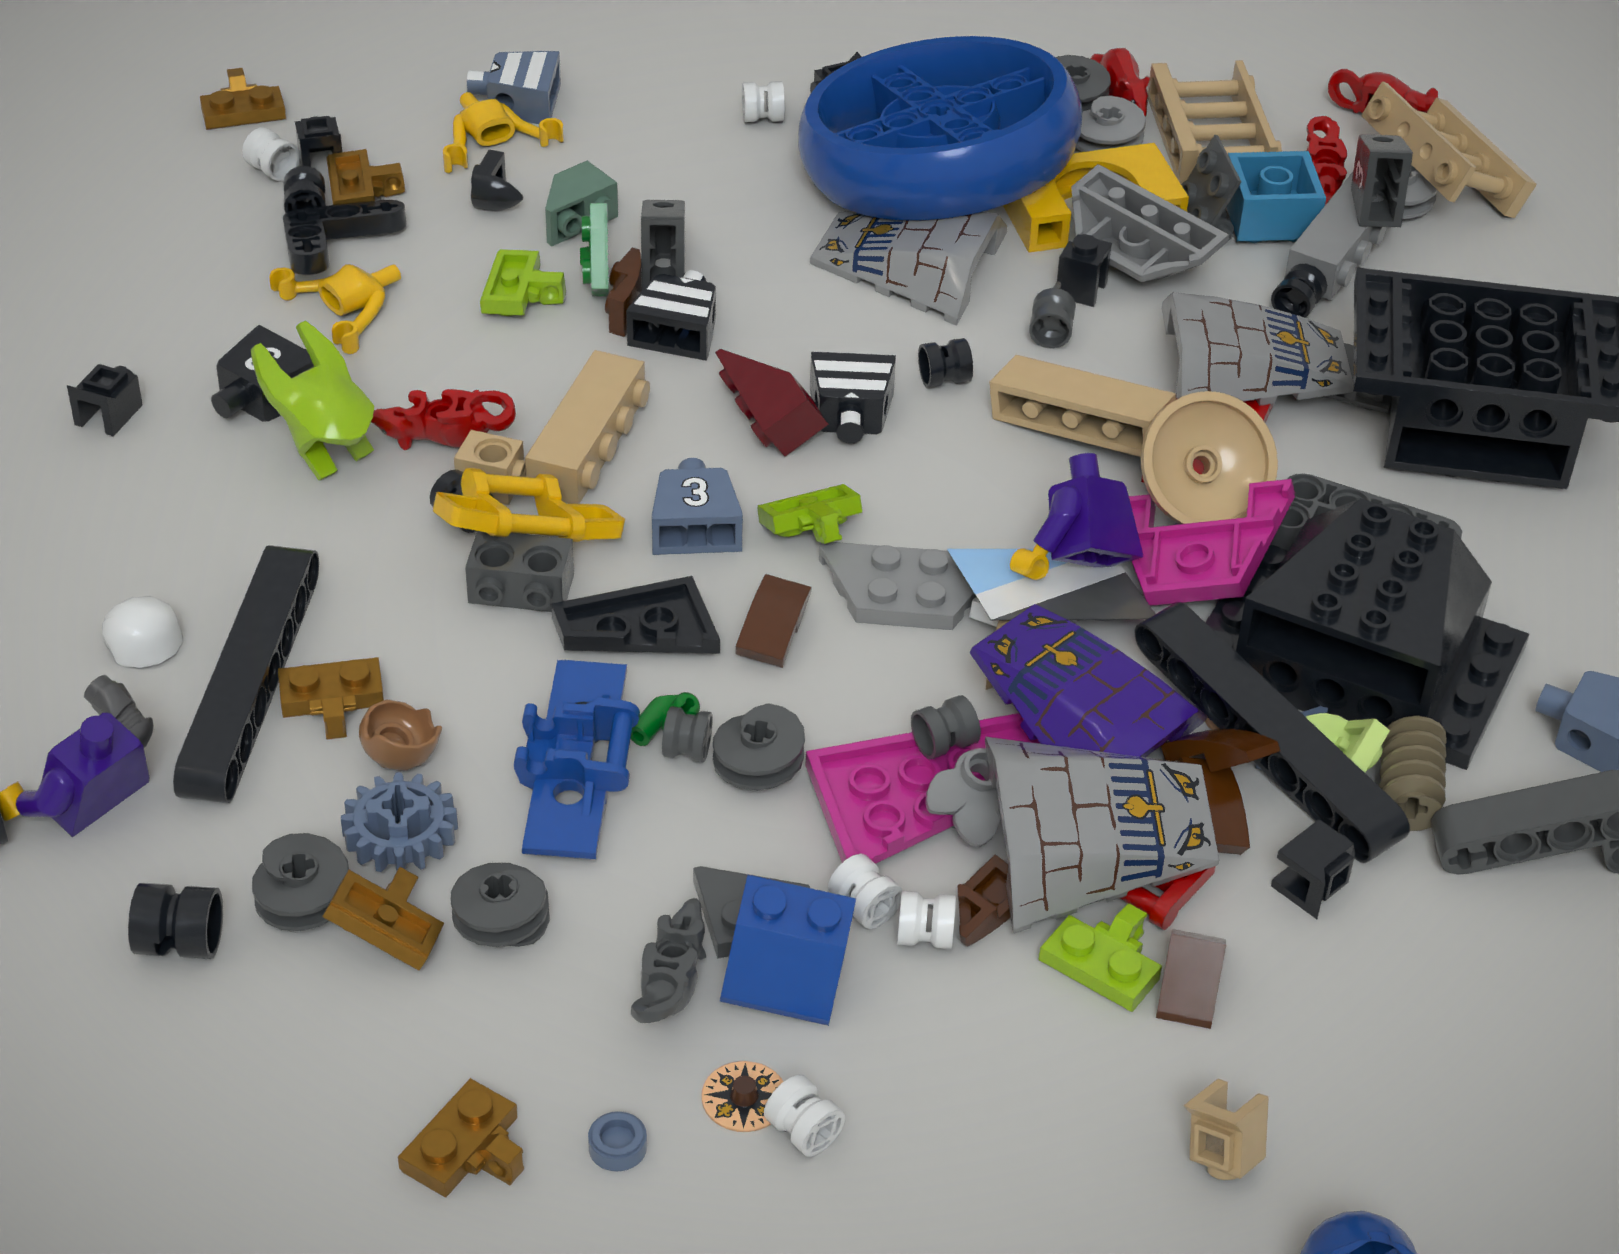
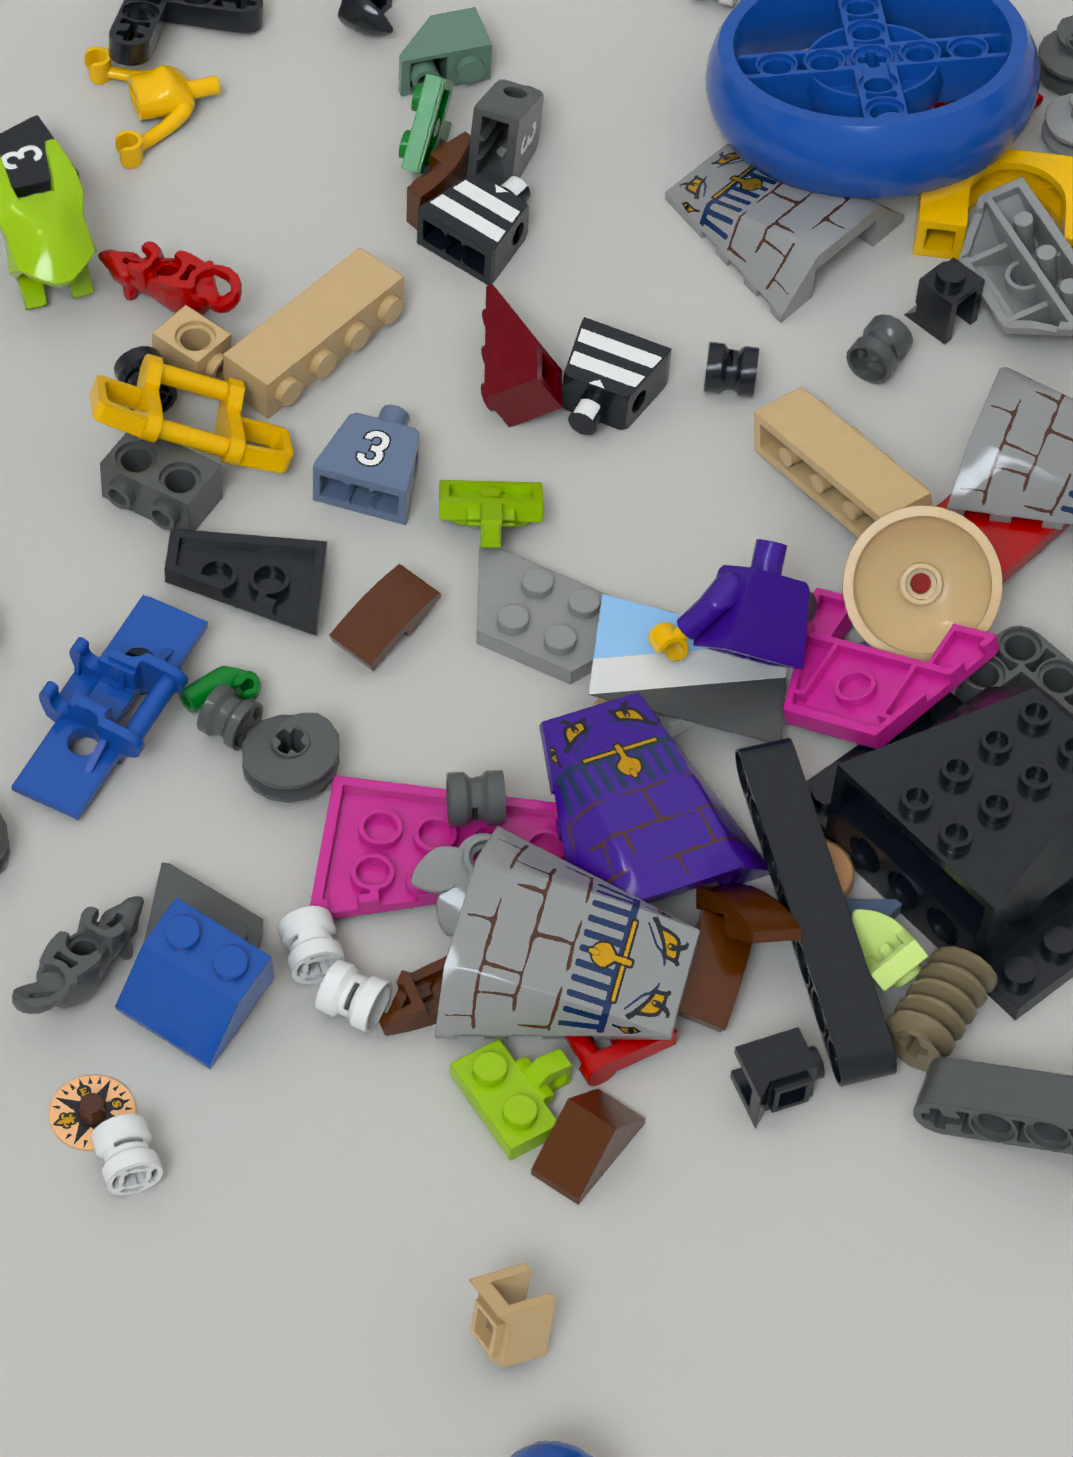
camera: 20 degrees right, 10 degrees up
(517, 280) = (334, 134): lime hinge -> none

